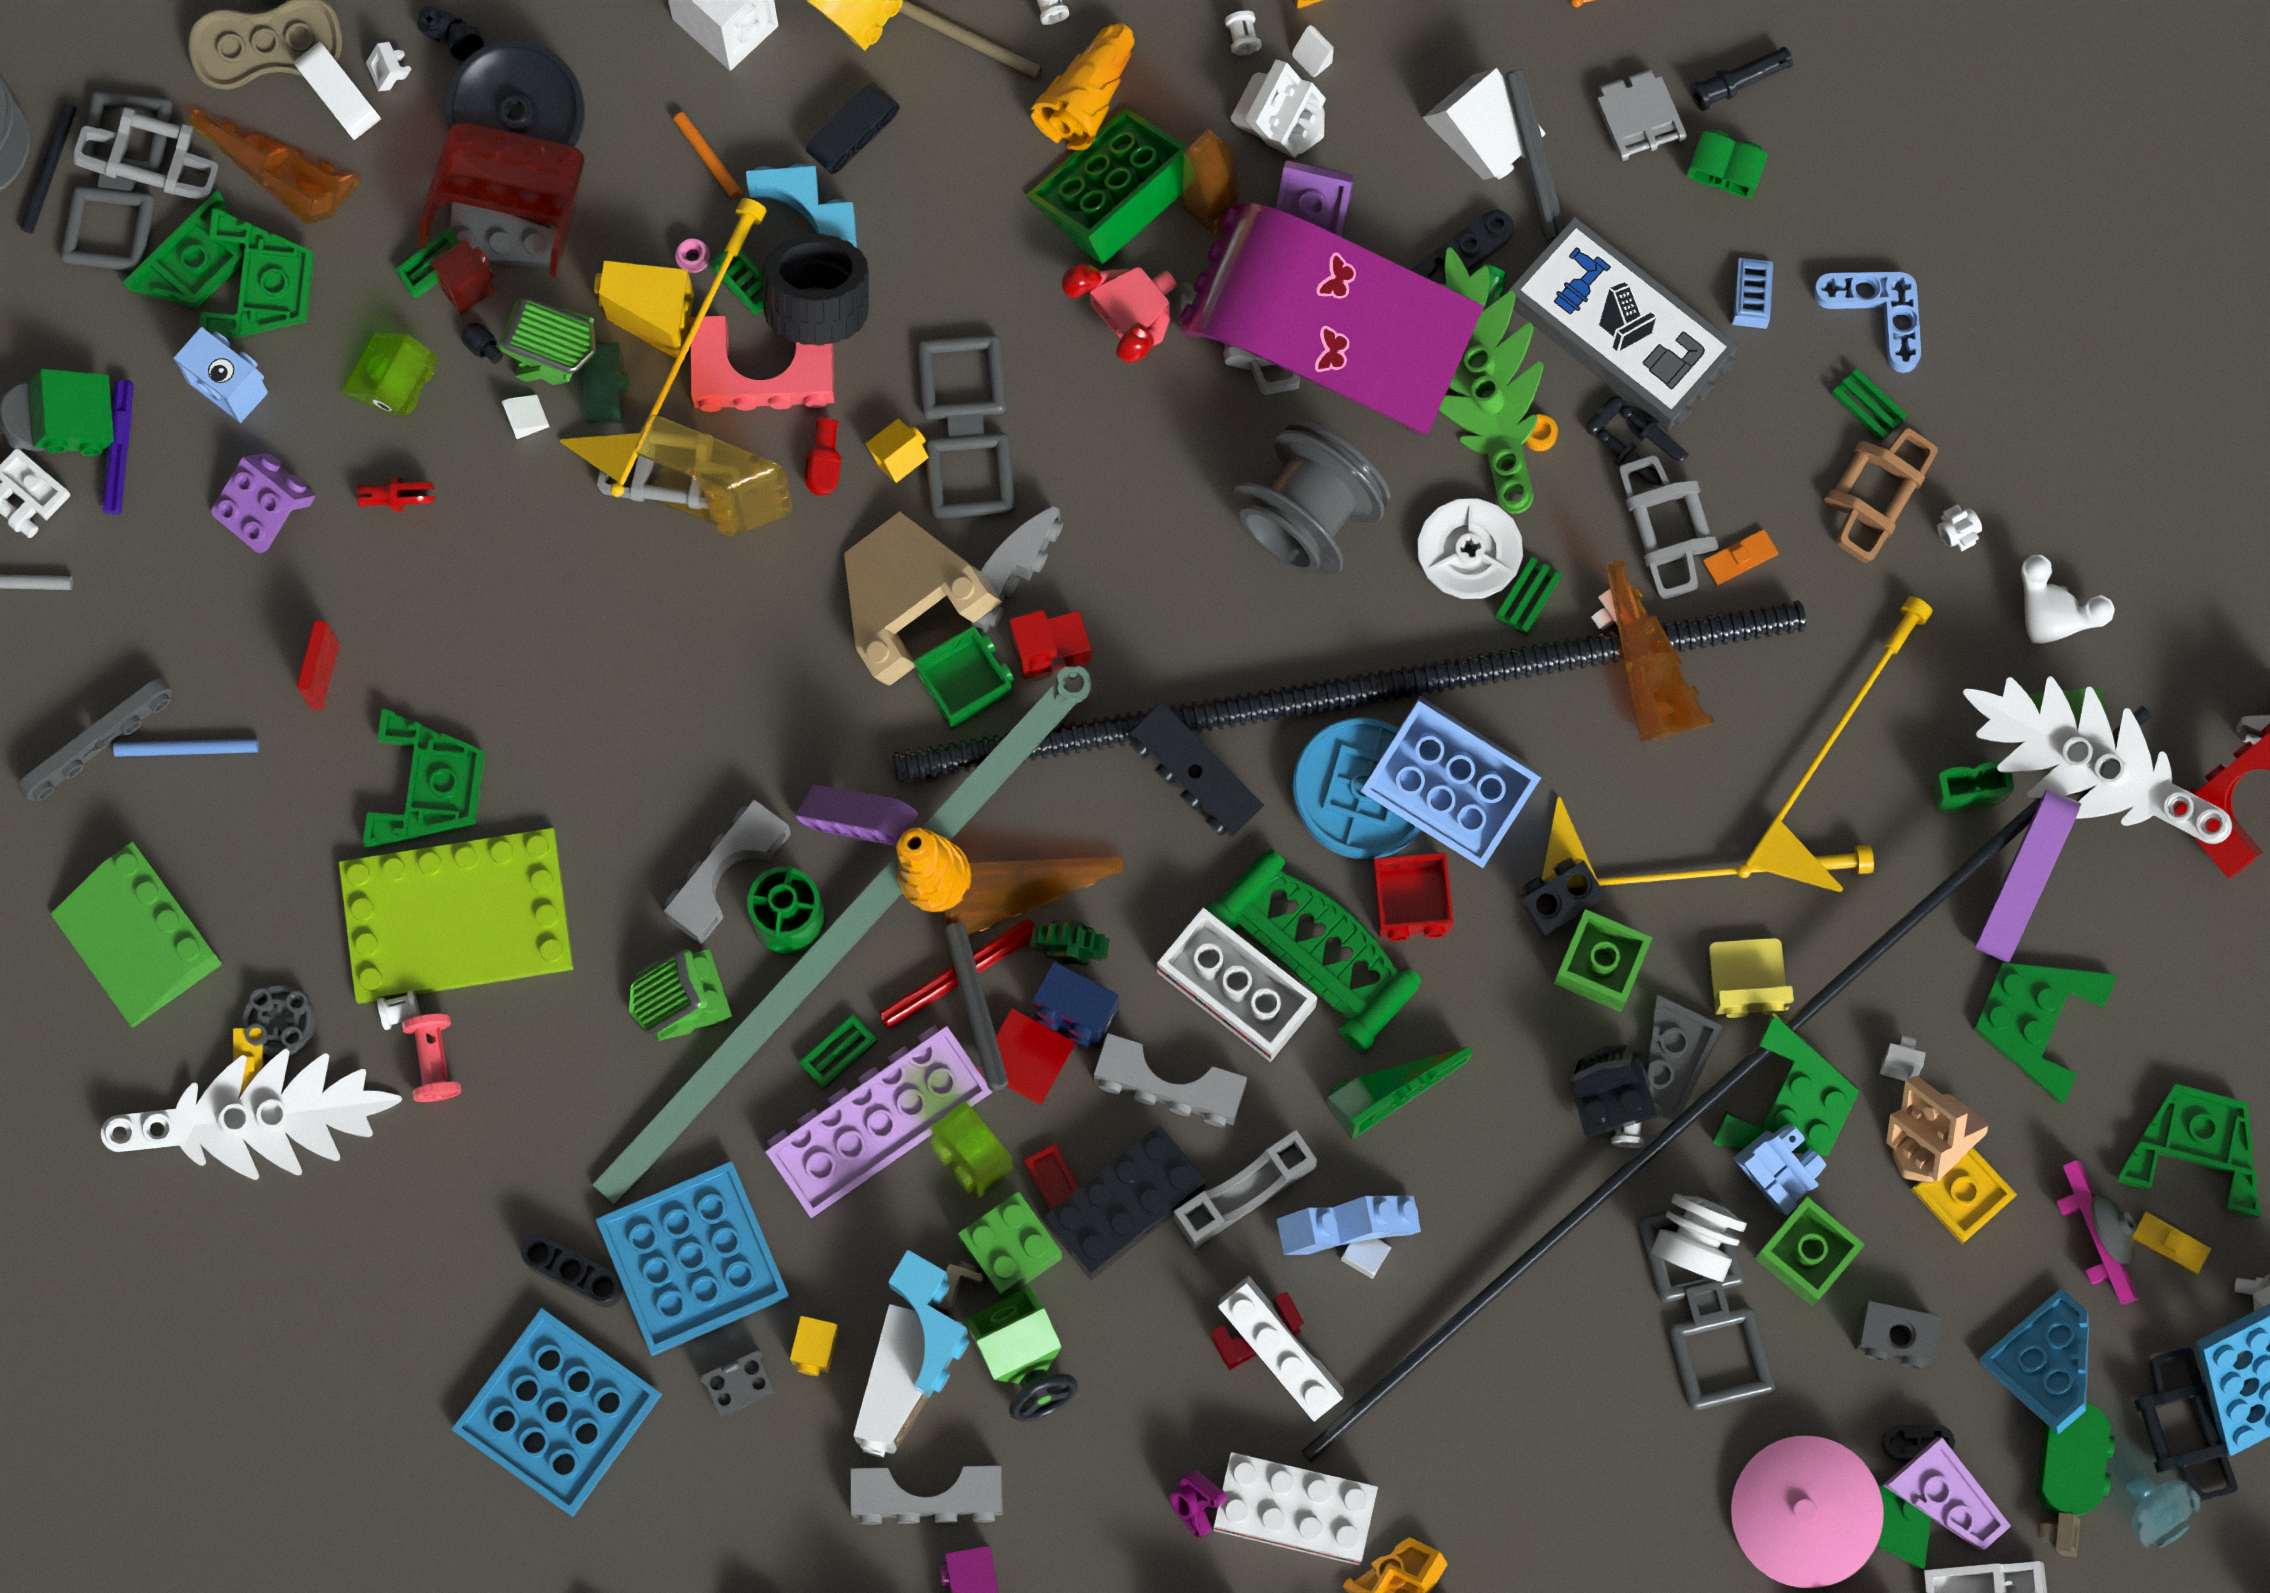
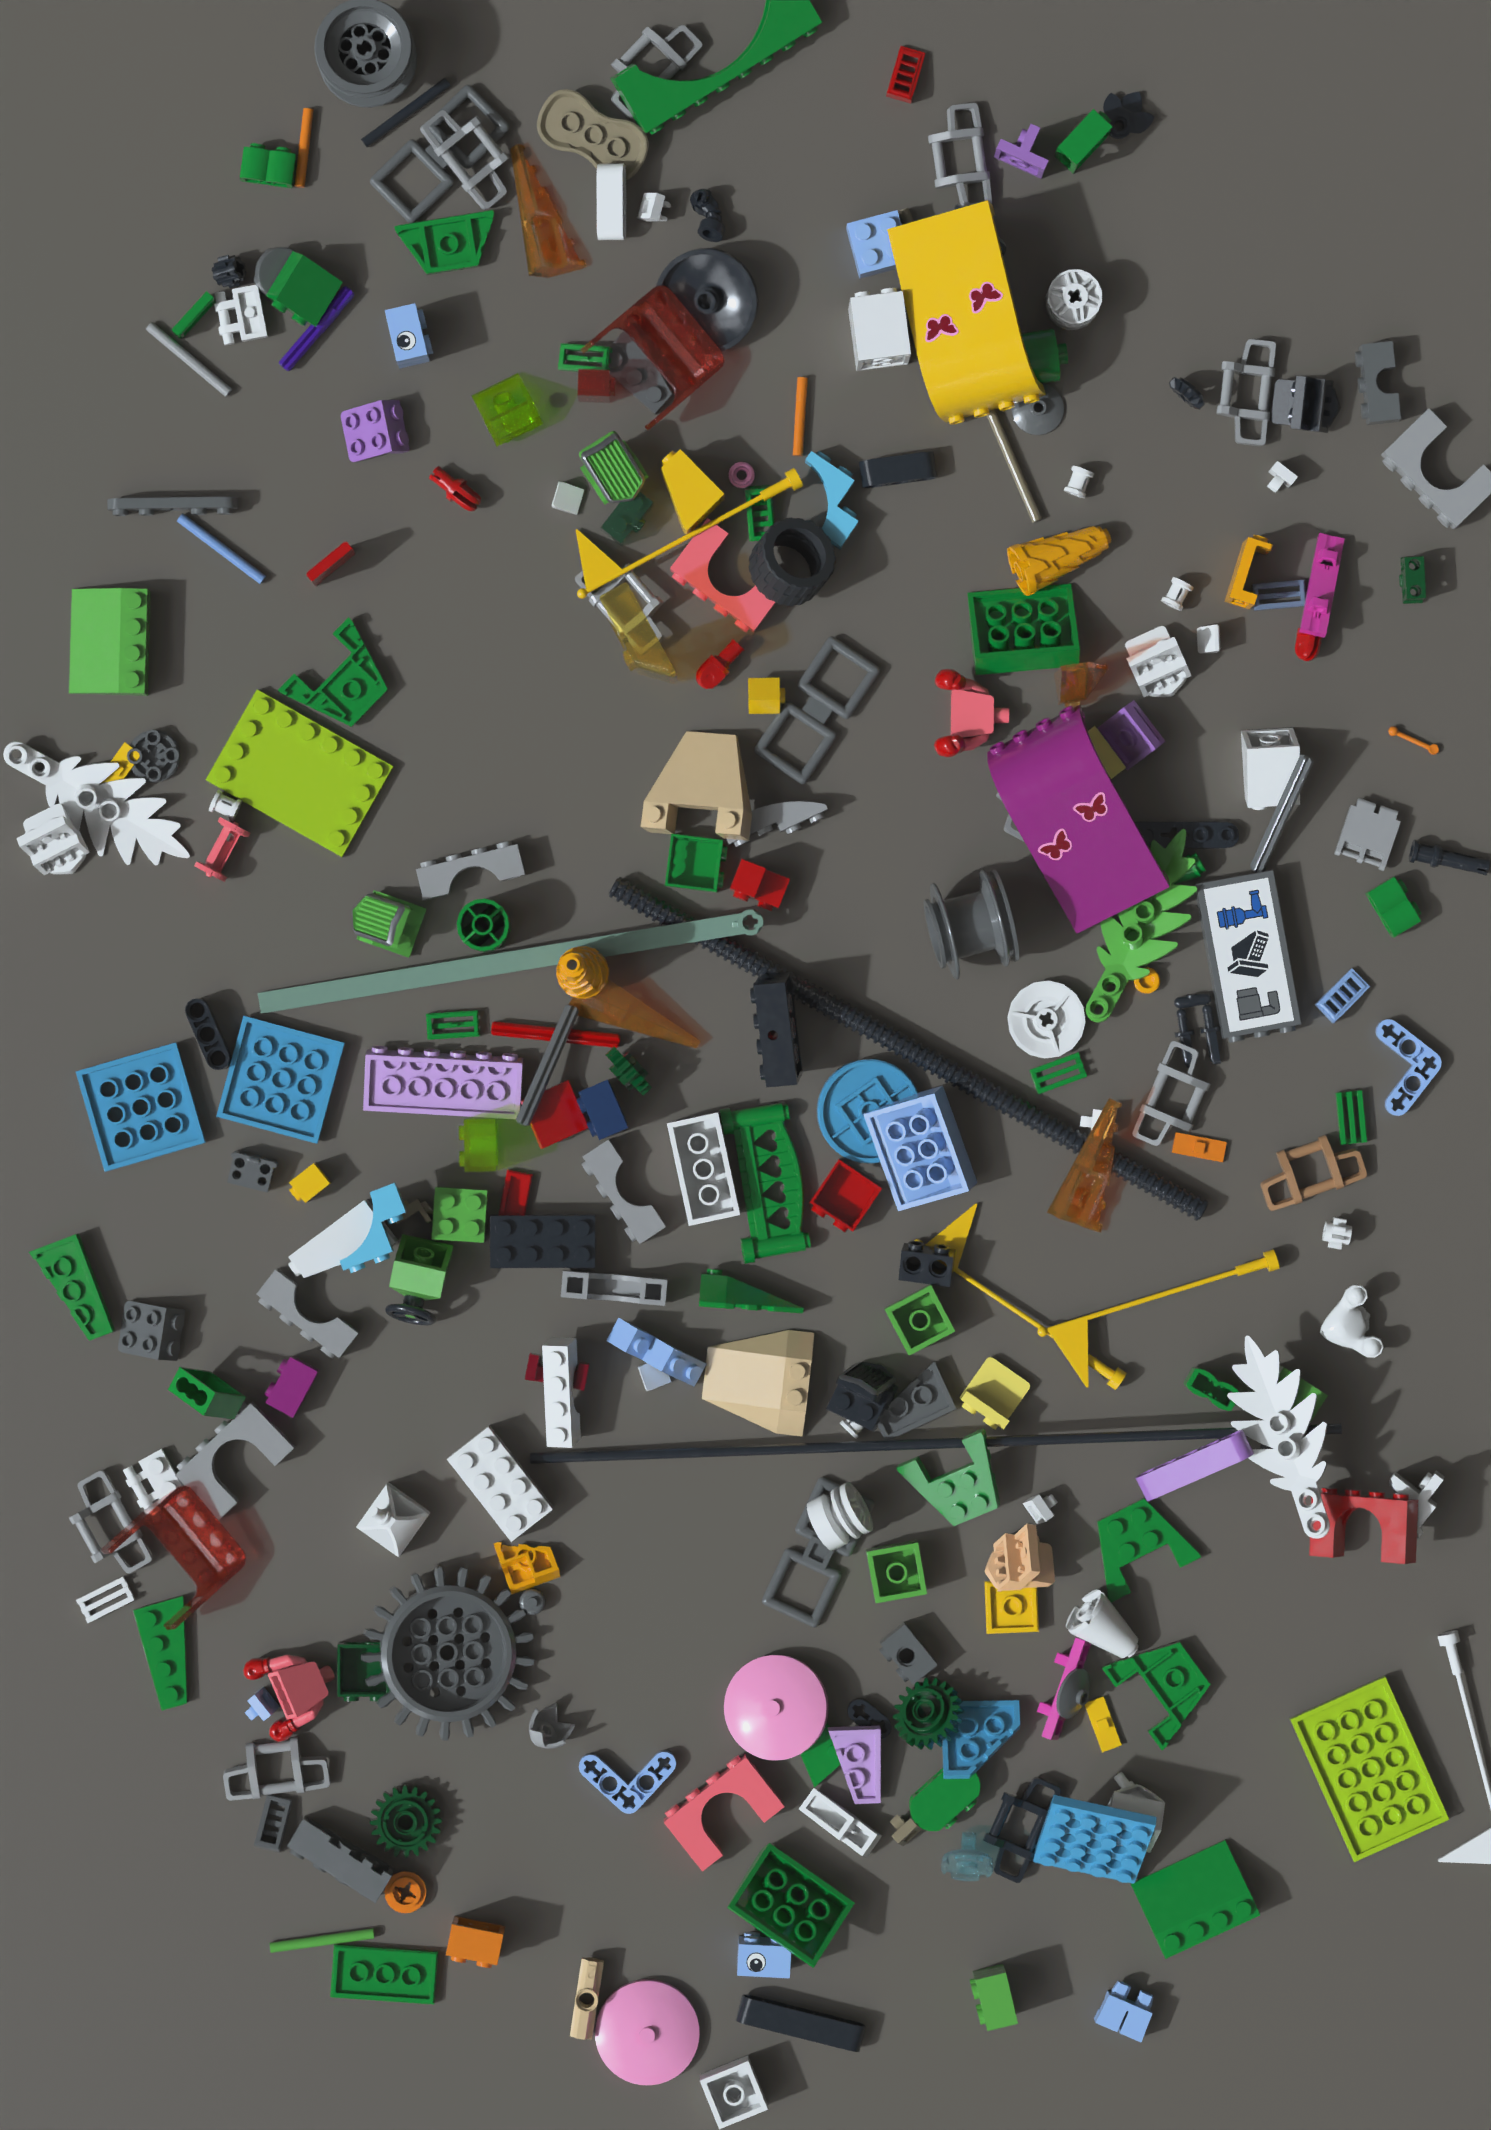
camera: 40 degrees right, 15 degrees up
(235, 1196) = (53, 842): none -> white piece
(273, 280) = (484, 294): green wing -> none
(481, 342) = (576, 431): black cylinder -> none
(856, 814) = (563, 905): medium lavender beam -> none
(1192, 1500) = (447, 1435): magenta piece -> none
(1490, 1164) = (762, 1379): none -> tan wedge
(1777, 1170) = (915, 1512): light blue hips -> none
(1980, 1404) = (932, 1696): none -> dark green gear
(2078, 1130) = (1102, 1625): none -> white cone

